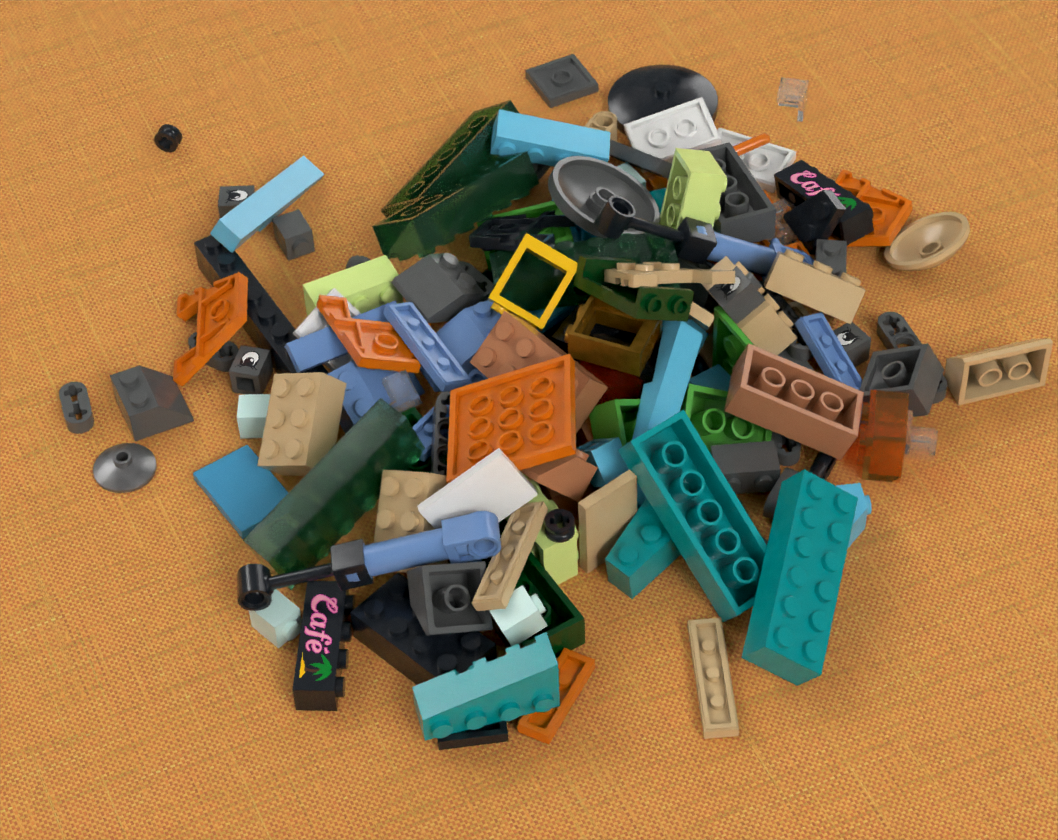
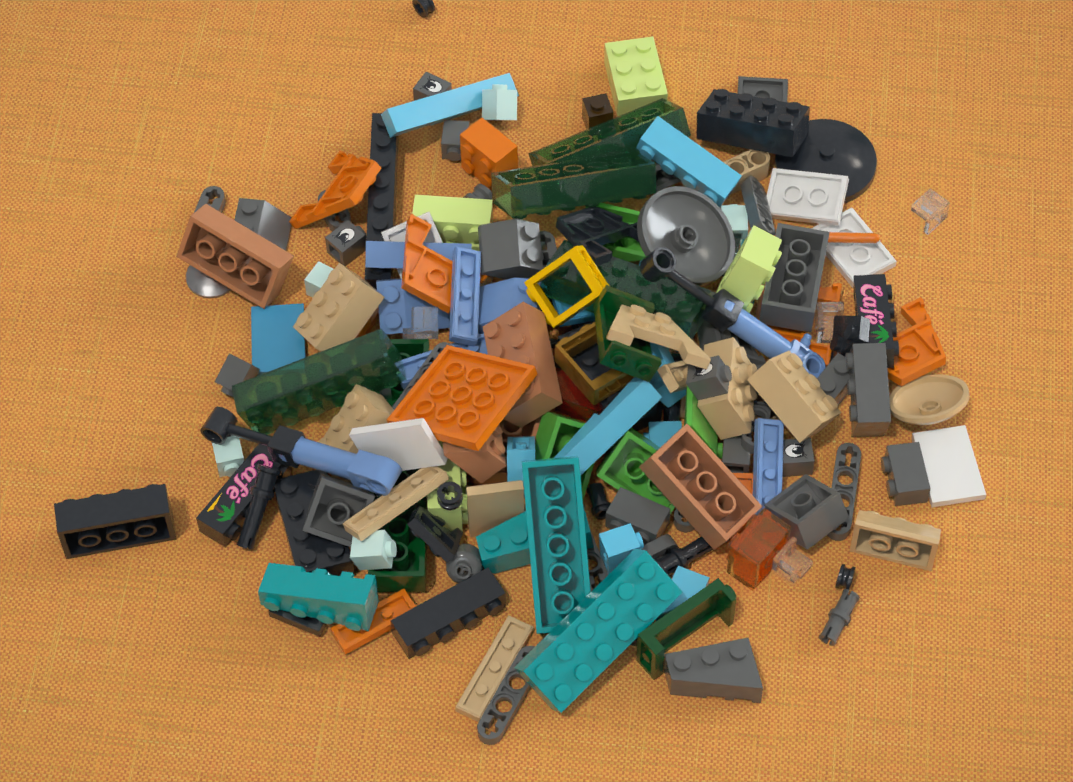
camera: 30 degrees right, 10 degrees up
(148, 426) = (234, 256): none -> nougat brick
(203, 738) = (115, 521): none -> black brick
(228, 538) = (233, 372): none -> dark grey brick
(316, 182) = (499, 103): none -> light aqua brick
(341, 227) = (486, 151): none -> orange brick
(349, 629) = (261, 493): none -> black pin
(416, 150) = (596, 110): none -> dark brown brick
(427, 106) = (634, 73): none -> yellowish green brick
(578, 578) = (430, 529): none -> black wing
(580, 91) = (753, 122): none -> black brick
(609, 593) = (465, 563): none -> dark grey head
(627, 649) = (448, 613): none -> black brick
(749, 692) = (503, 693): none -> dark grey beam
(759, 496) = (618, 544): none -> medium azure slope
(863, 567) = (681, 622): none -> dark green panel
(876, 253) = (868, 390): none -> dark grey wedge
(932, 562) = (716, 671): none -> dark grey wedge
(957, 313) = (906, 474): none -> dark grey brick
(978, 424) = (845, 577): none -> black bush
(985, 292) = (950, 466): none -> white tile
(1001, 461) = (839, 617): none -> dark grey pin

